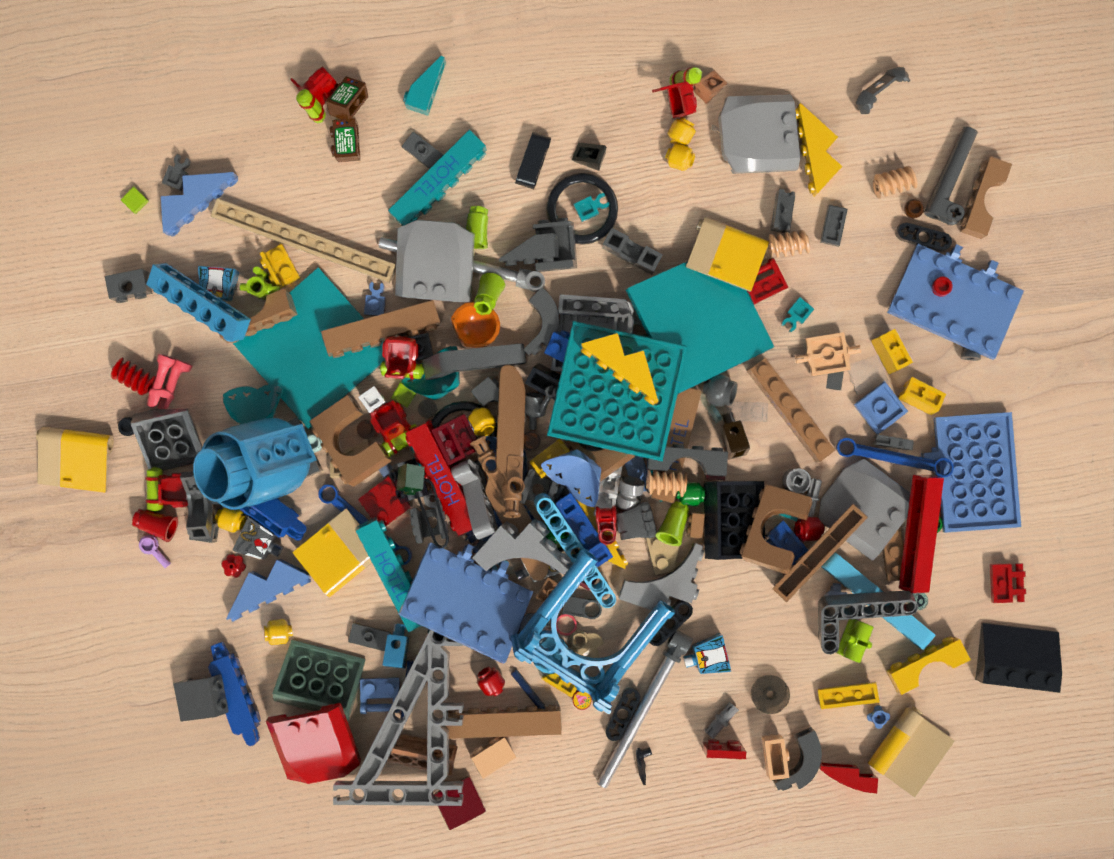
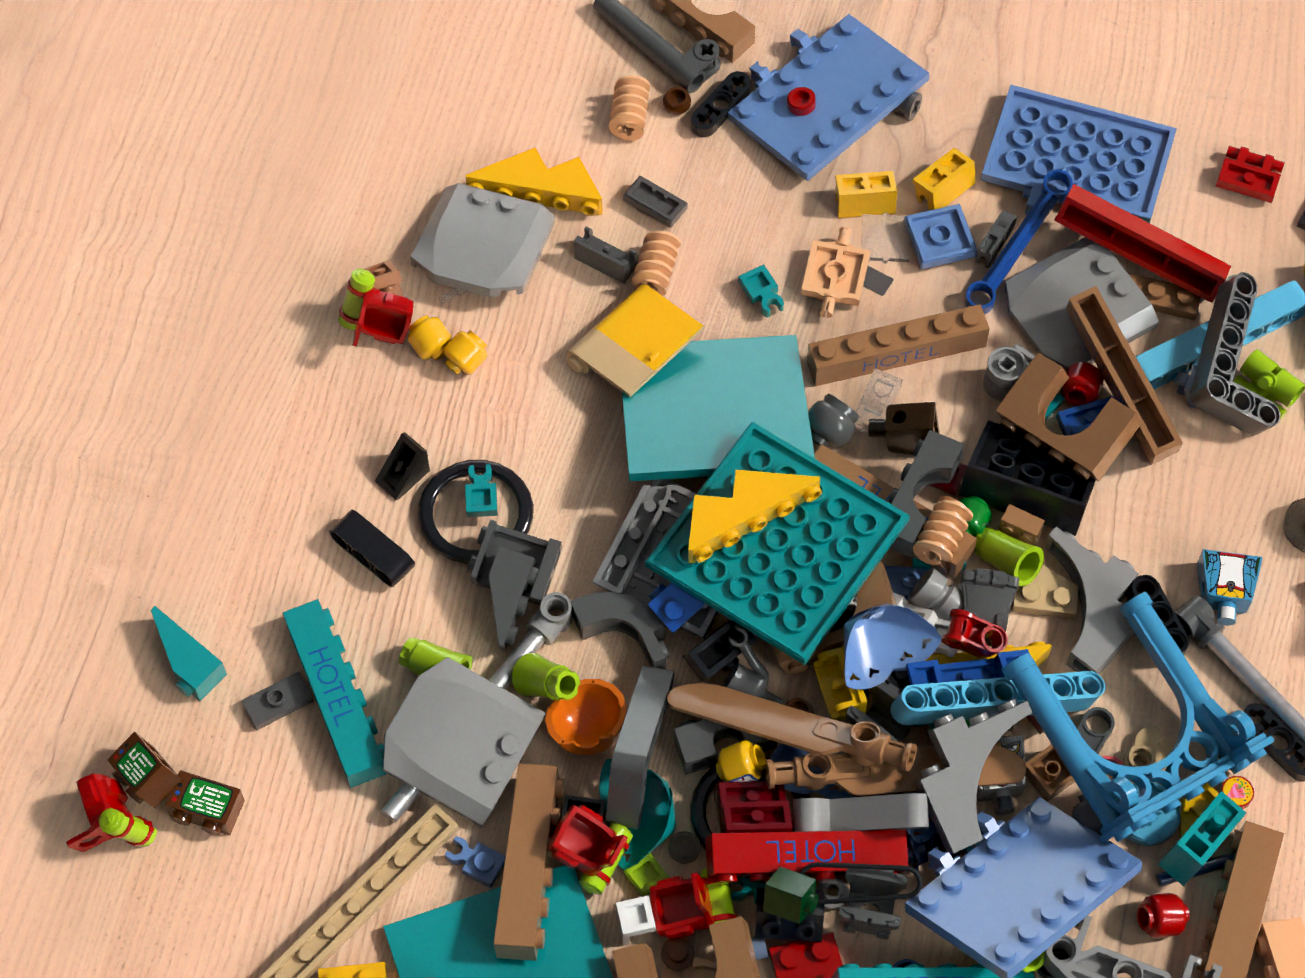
camera: 70 degrees left, 25 degrees down
(542, 690) = (1202, 838): none -> teal slope
(637, 255) = (592, 450): dark grey arch -> none
(714, 413) = (862, 445): clear light blue tile -> none
(770, 285) = (703, 308): red plate -> none
(867, 97) = (497, 95): dark grey piece -> none

